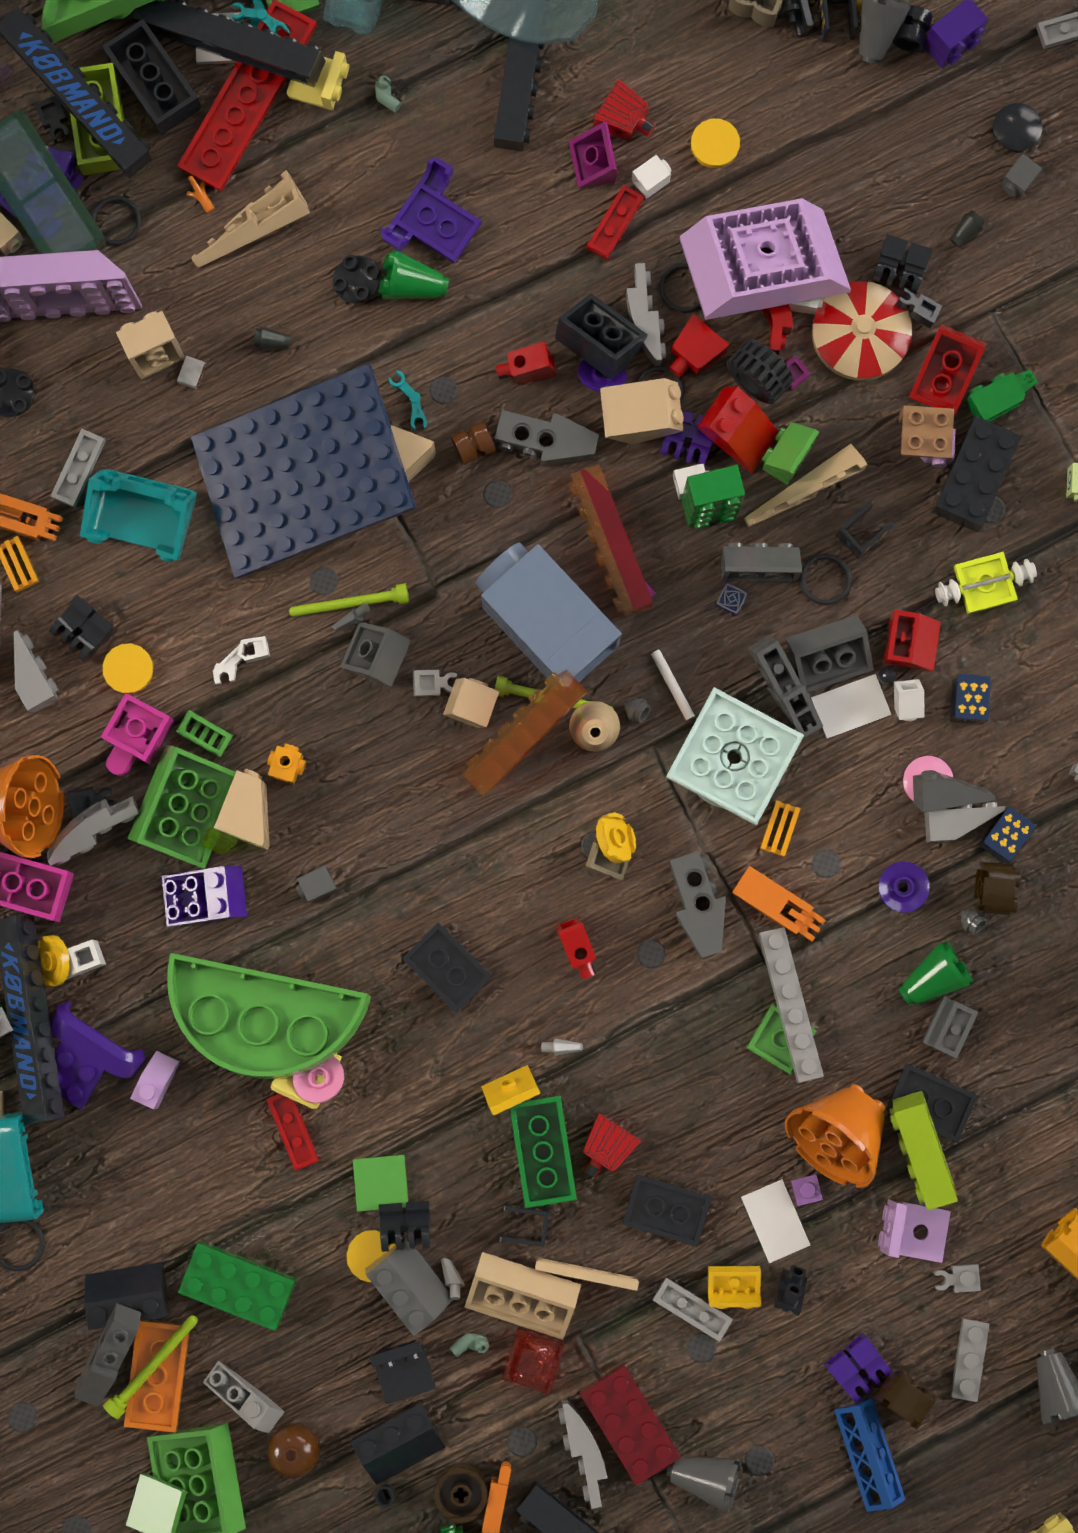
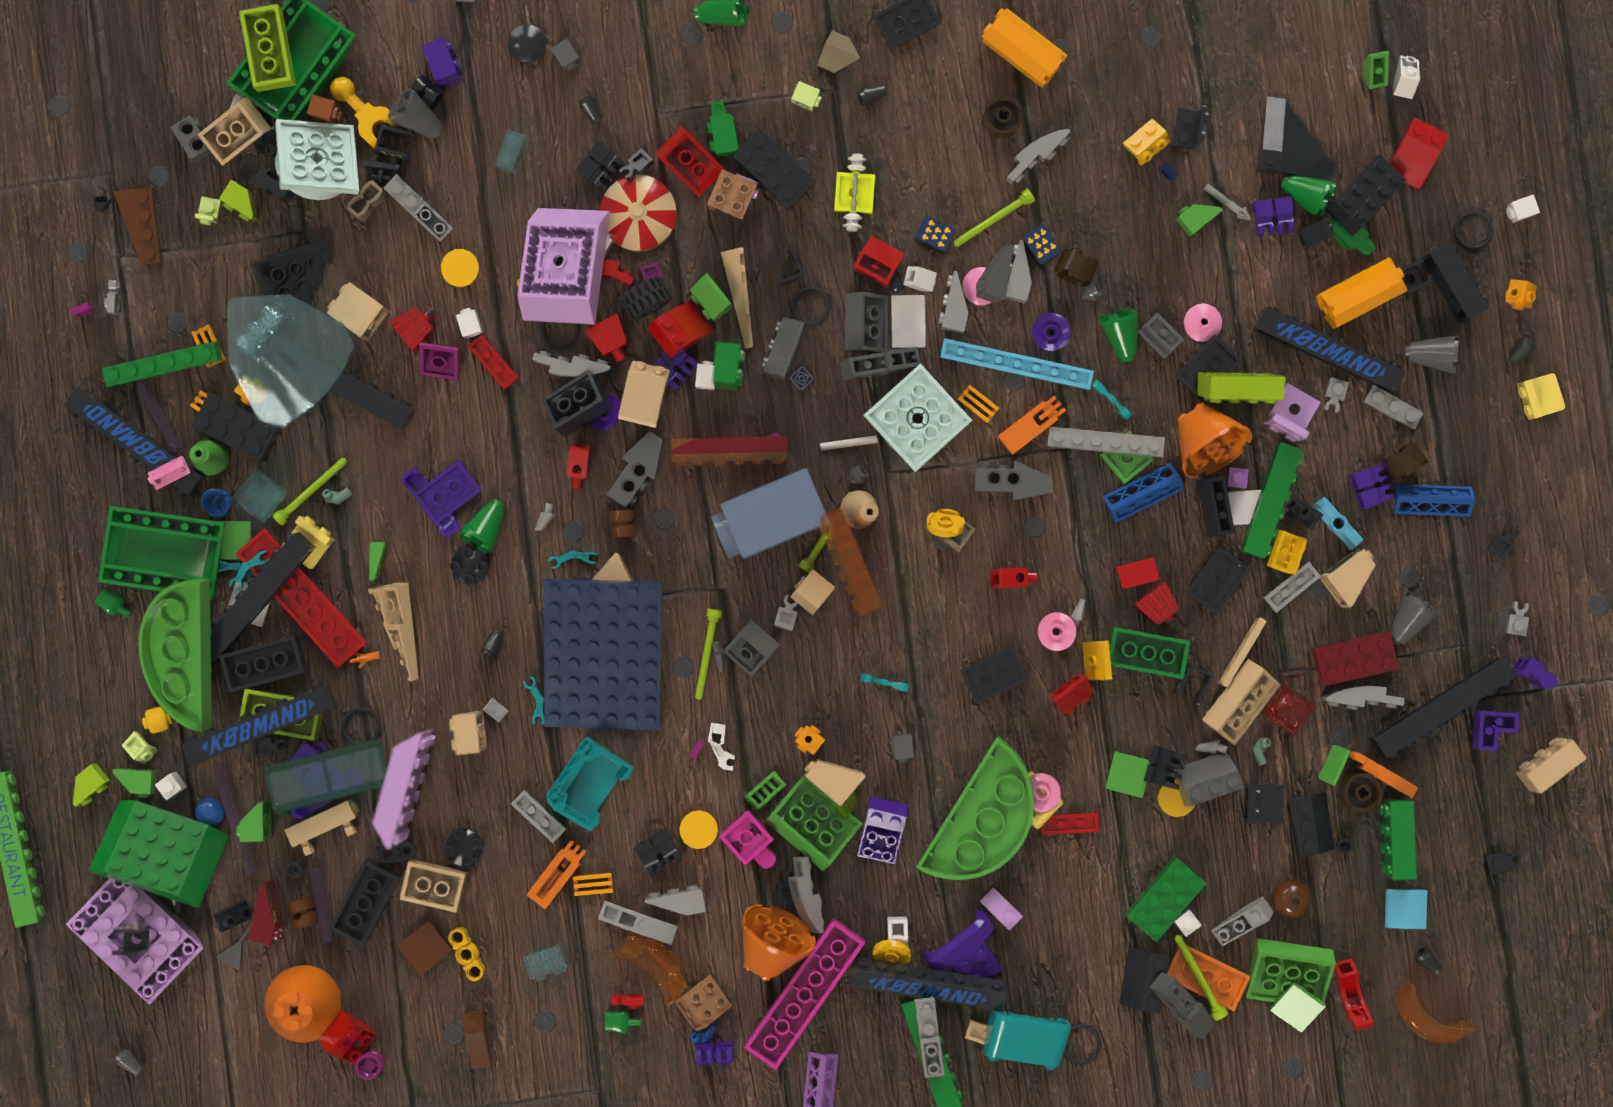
camera: 70 degrees left, 5 degrees up
(207, 424) = (539, 700): none -> teal piece
(217, 1324) = (1187, 922): none -> white brick
(227, 631) = (697, 749): none -> magenta tile
(325, 166) = (376, 558): none -> bright green slope
(339, 39) = (282, 515): none -> lime piece
(392, 855) = (897, 685): none -> teal piece
(448, 349) = (545, 517): none -> light grey bar
(456, 1073) = (1071, 694): none -> red slope
(484, 1445) = (1334, 765): none -> bright green slope
(529, 1041) = (1064, 638): none -> bright pink dish
(617, 40) = (357, 311): none -> tan slope
(639, 1103) = (1137, 573): none -> red panel
(731, 1378) = (1349, 577): none -> tan slope
(741, 1079) = (1145, 495): none -> blue fence
(760, 1173) = (1215, 506): none -> black brick
(769, 67) = (418, 208): none -> light grey slope
(786, 1354) = (1346, 532): none -> medium azure piece
(793, 1243) = (1271, 500): none -> green brick
(847, 858) = (1016, 364): none -> medium azure plate
(854, 975) = (1099, 387): none -> teal piece
(878, 152) = (511, 152): none -> clear light blue brick
(882, 759) = (956, 311): none -> light grey slope
(973, 1075) = (1193, 324): none -> bright pink dish
(1012, 1250) = (1329, 350): none -> black brick
(1057, 795) = (1025, 198): none -> lime piece

